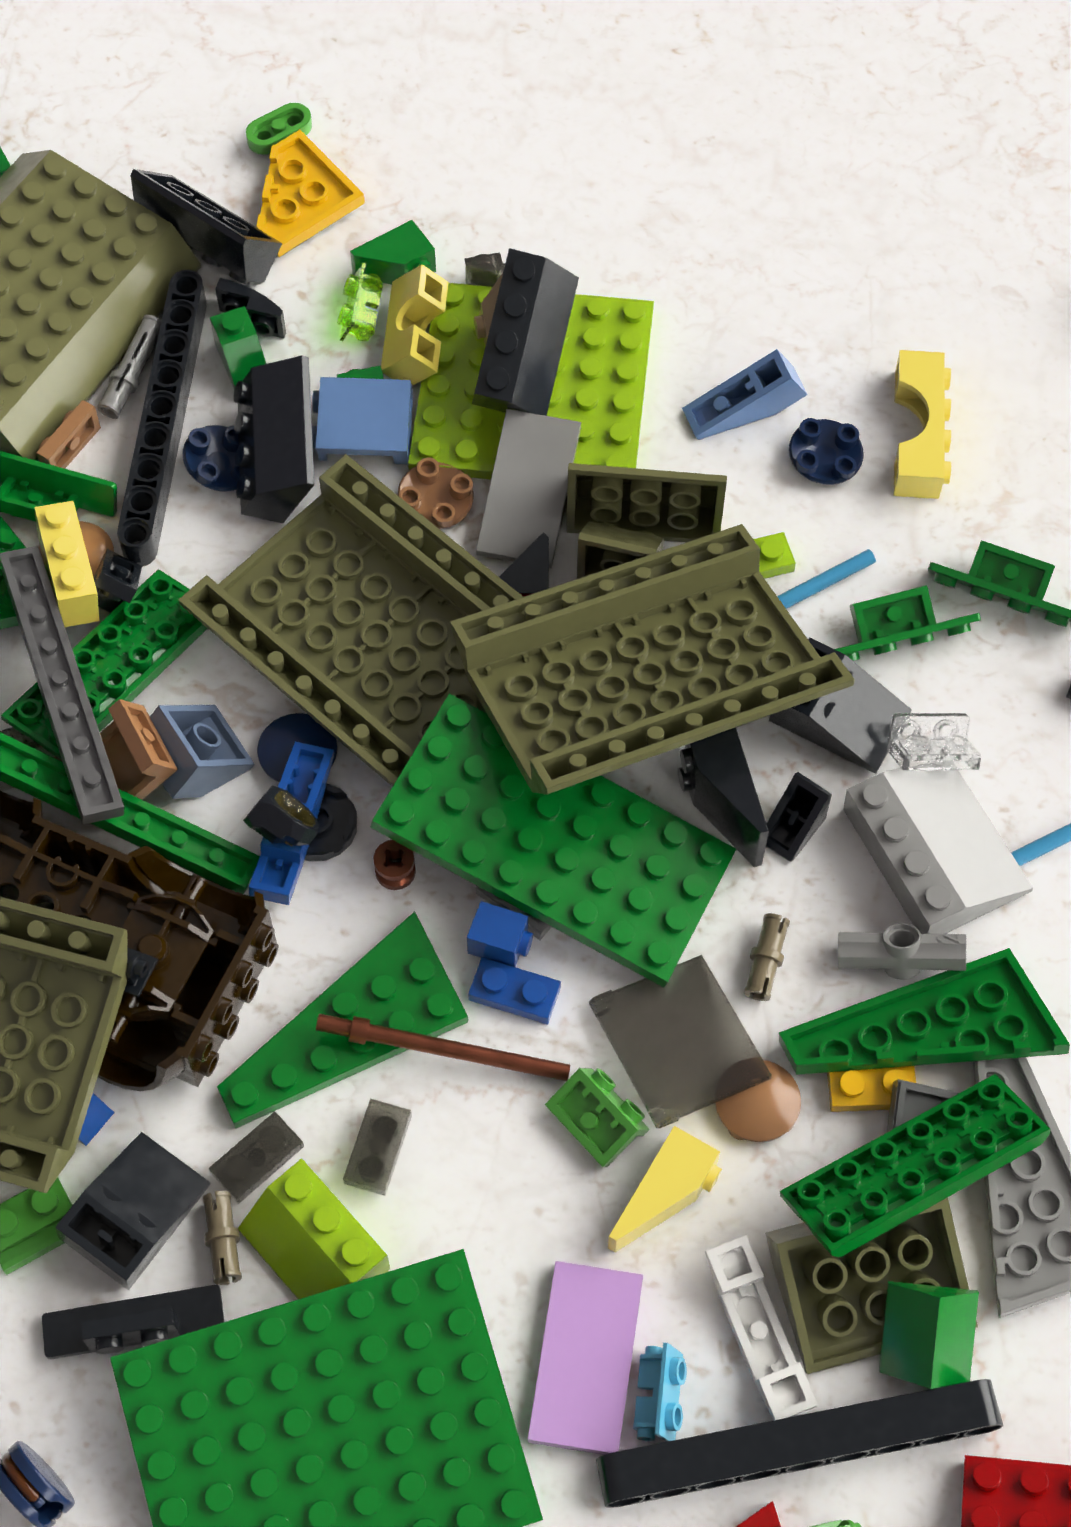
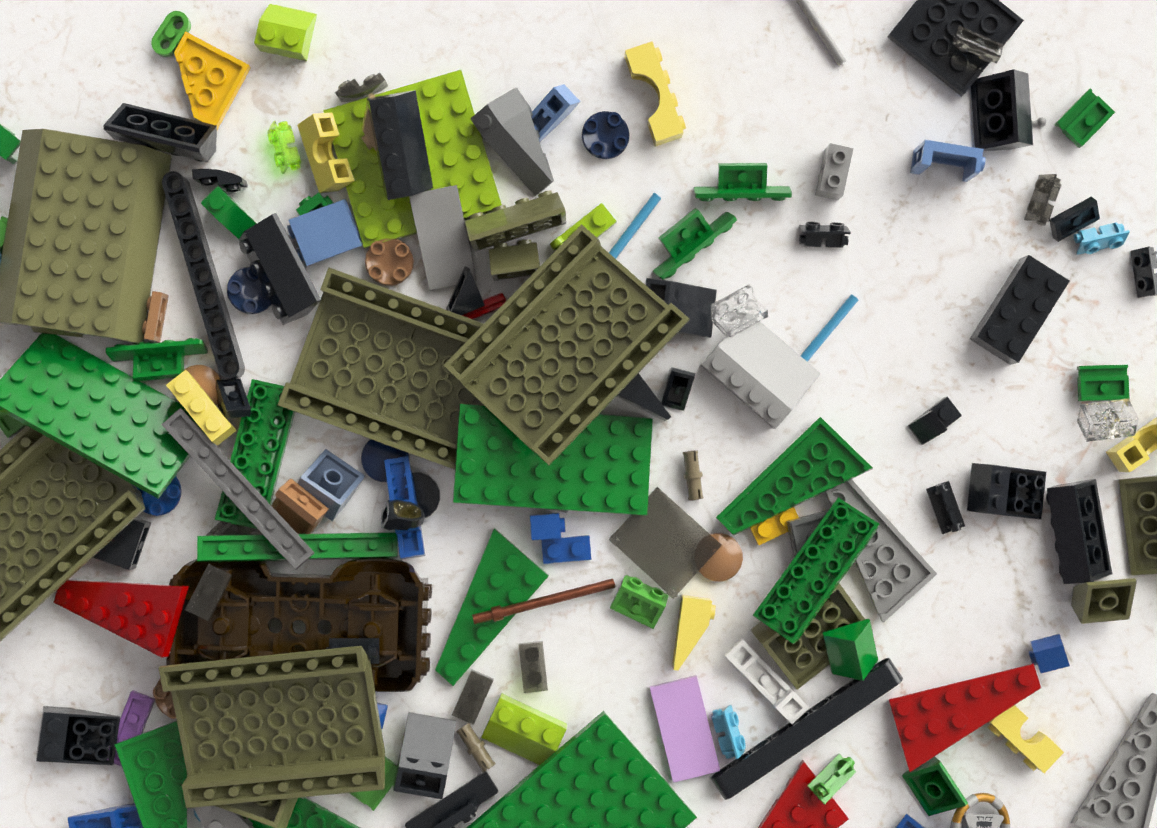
camera: 25 degrees left, 25 degrees up
(124, 379) = (167, 278): light grey pin -> none
(394, 874) = (468, 513): copper wheel -> none
(395, 253) = (291, 103): green slope -> none
(430, 179) = (285, 32): none -> lime slope
(690, 394) = (511, 133): none -> dark grey wedge
(902, 951) = (750, 449): light grey piece -> none

